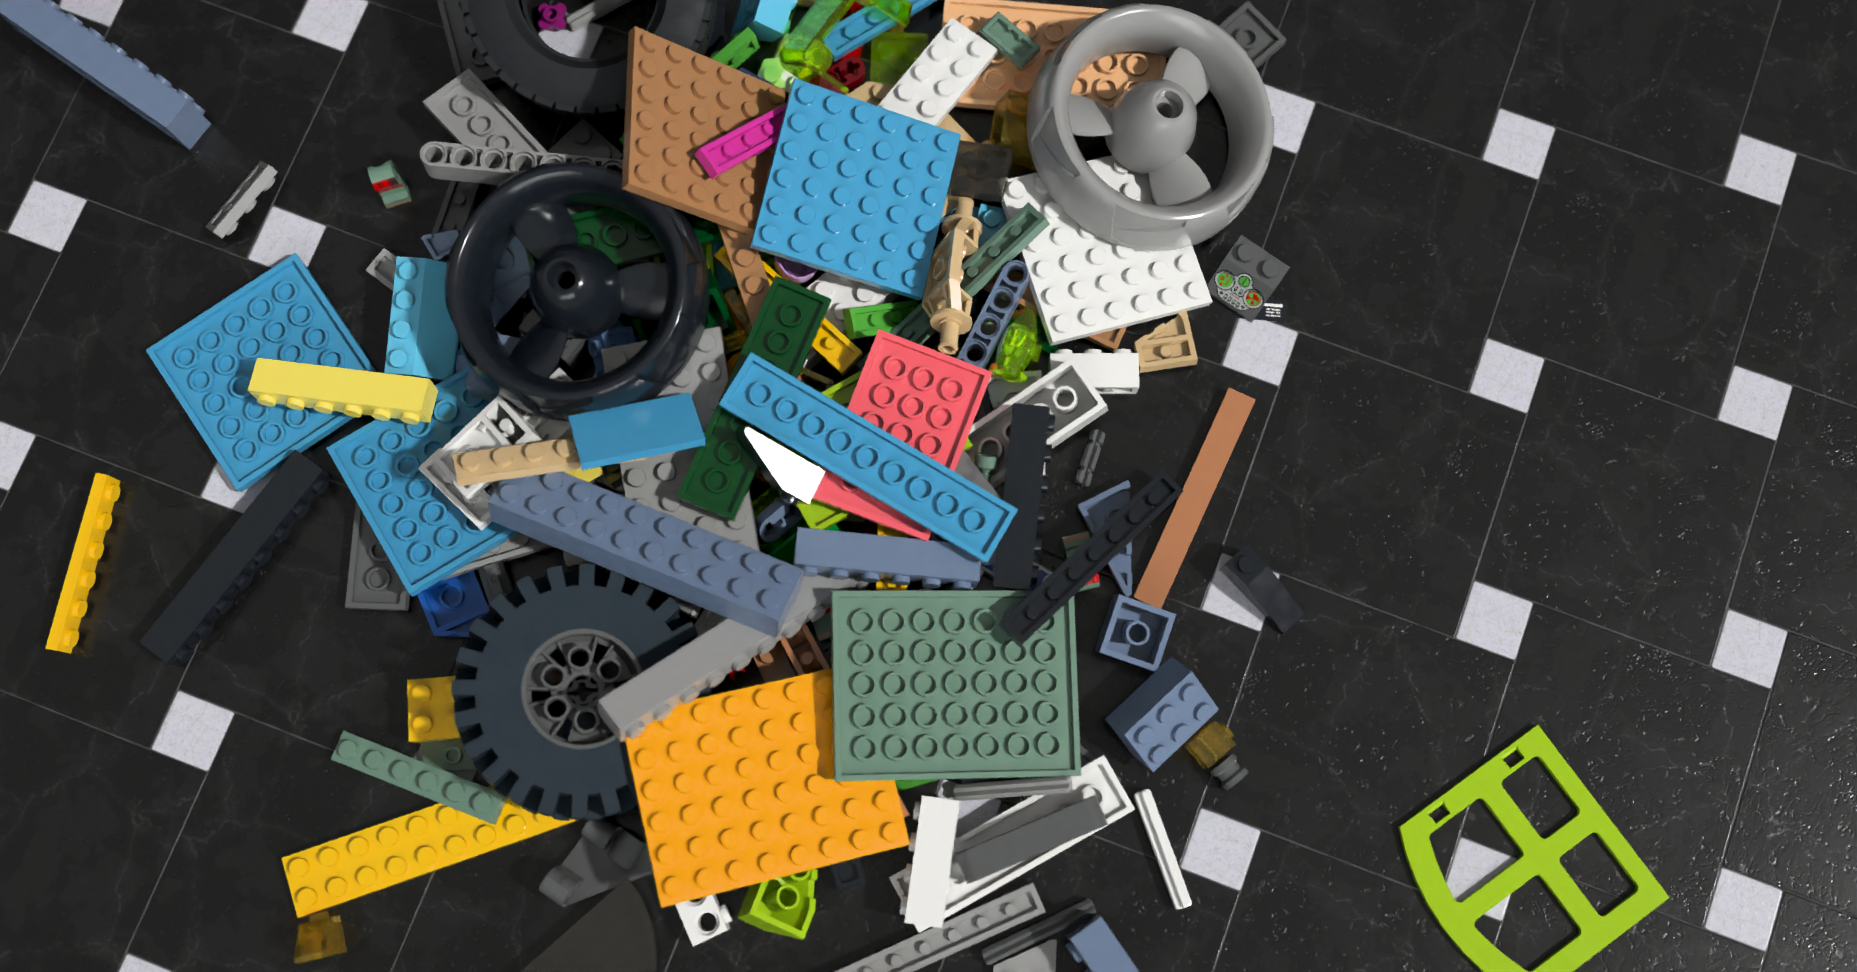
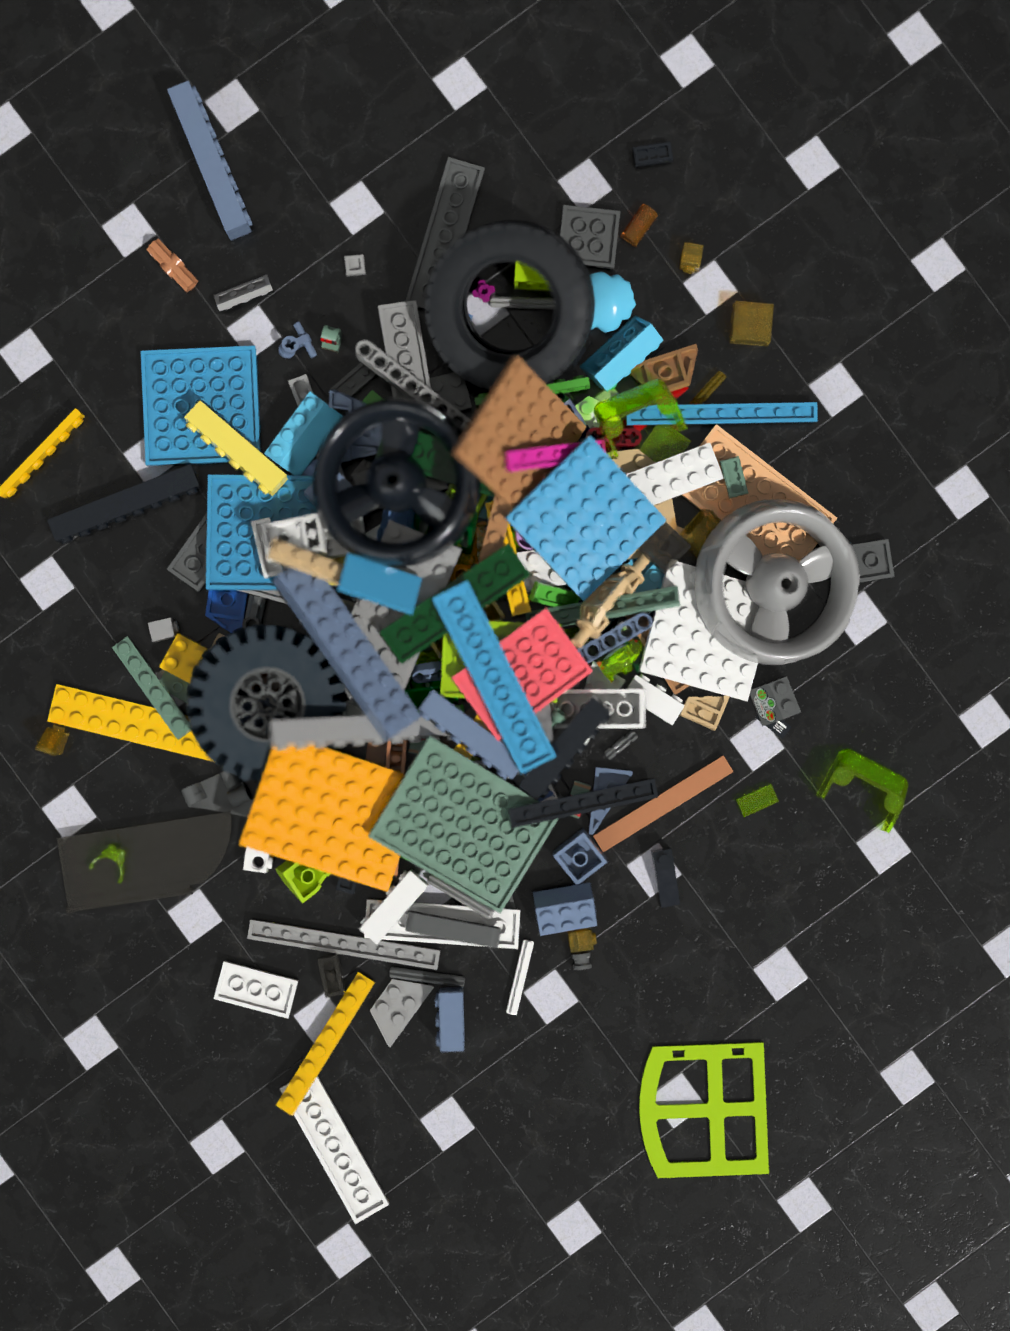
camera: 30 degrees right, 10 degrees up
(127, 221) = (172, 265): none -> nougat piece
(342, 222) = (295, 343): none -> sand blue piece
(368, 83) = (355, 265): none -> light grey tile
(386, 690) = (163, 629): none -> light grey brick
(783, 469) = (444, 654): slope -> none
(1310, 417) = (757, 800): none -> clear neon green tile
(1394, 299) = (850, 764): none -> clear neon green windscreen

